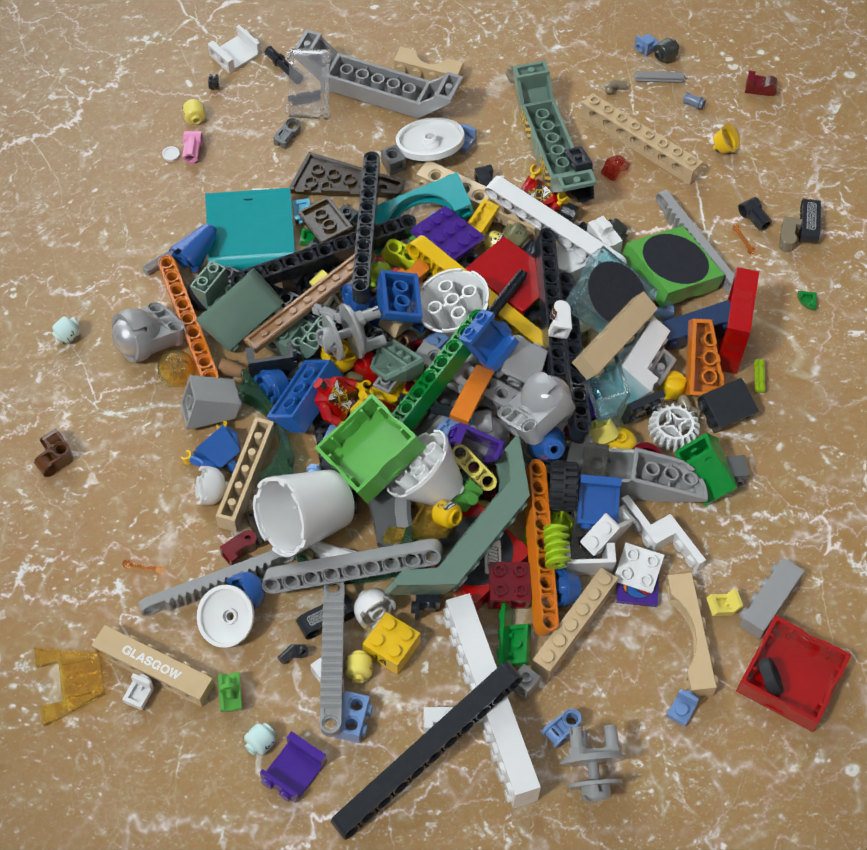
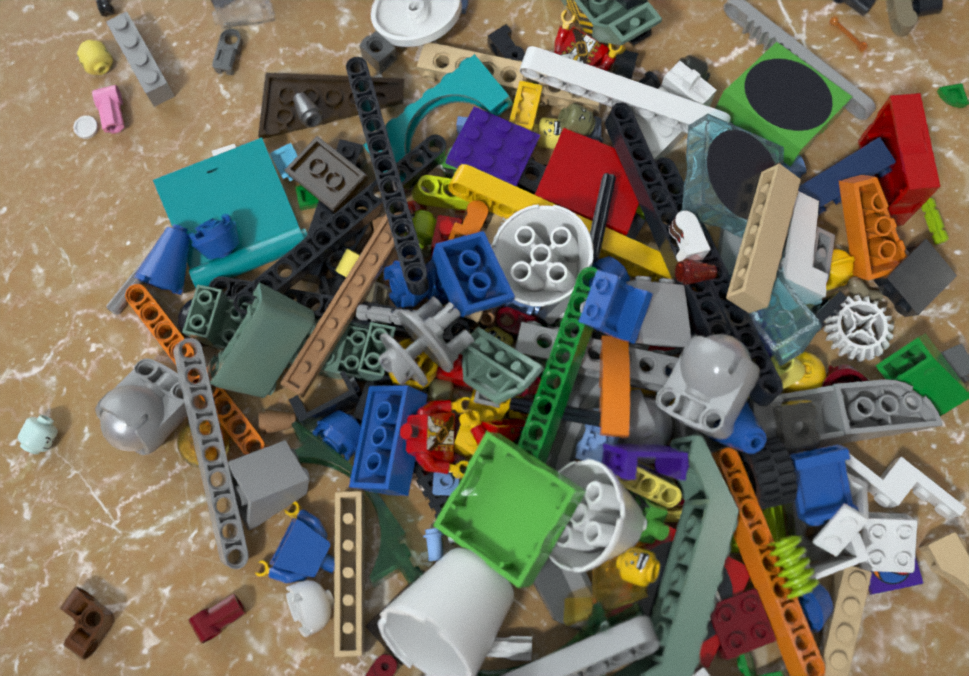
camera: 15 degrees left, 15 degrees up
(138, 478) = (211, 621): none -> dark red piece
(176, 375) = (220, 463): none -> light grey beam
(225, 120) = (140, 59): none -> light grey brick
(234, 240) = (216, 237): none -> blue cone
(328, 181) = (307, 111): none -> flat silver cone
(555, 340) = (694, 271): none -> clear red cone

